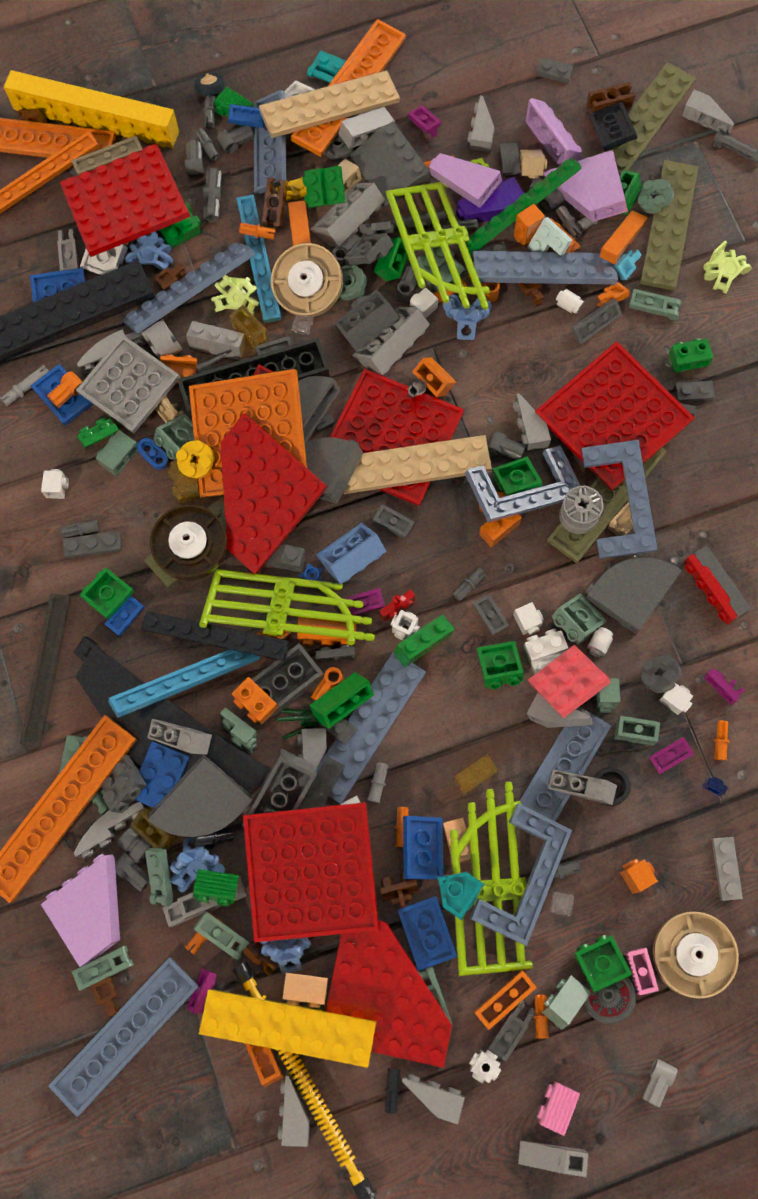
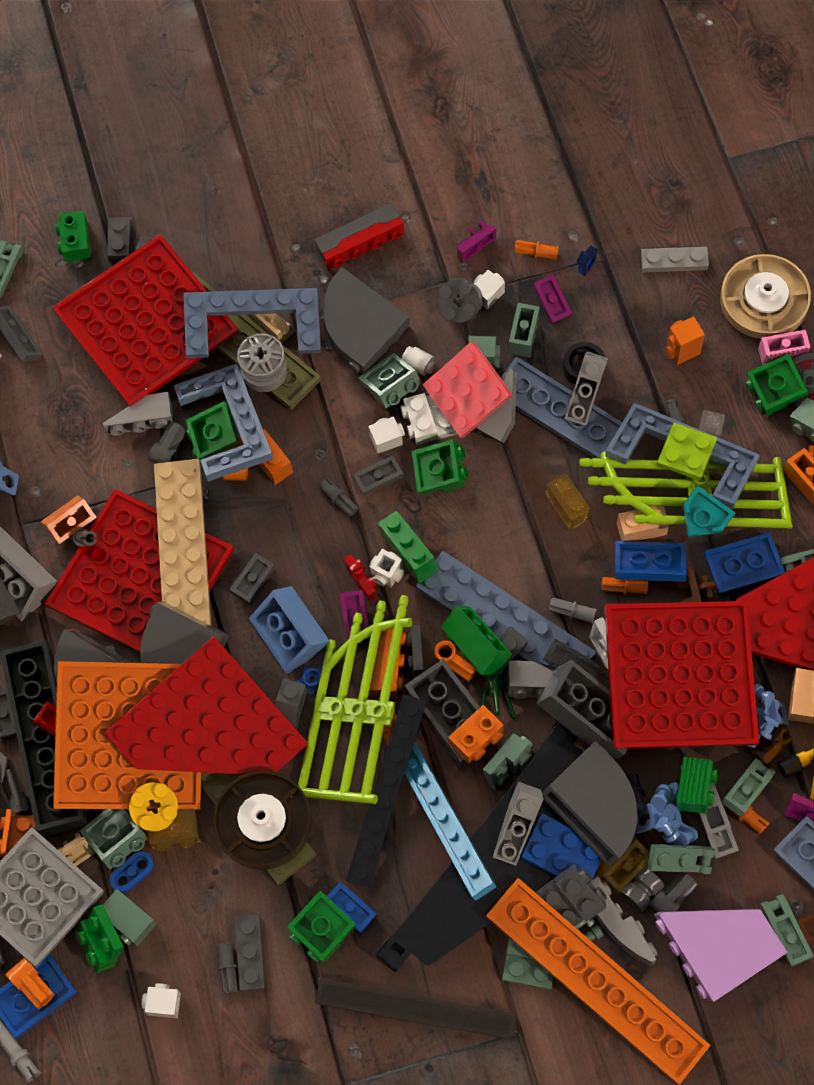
camera: 85 degrees left, 5 degrees down
(523, 877) = (687, 451): none -> lime plate

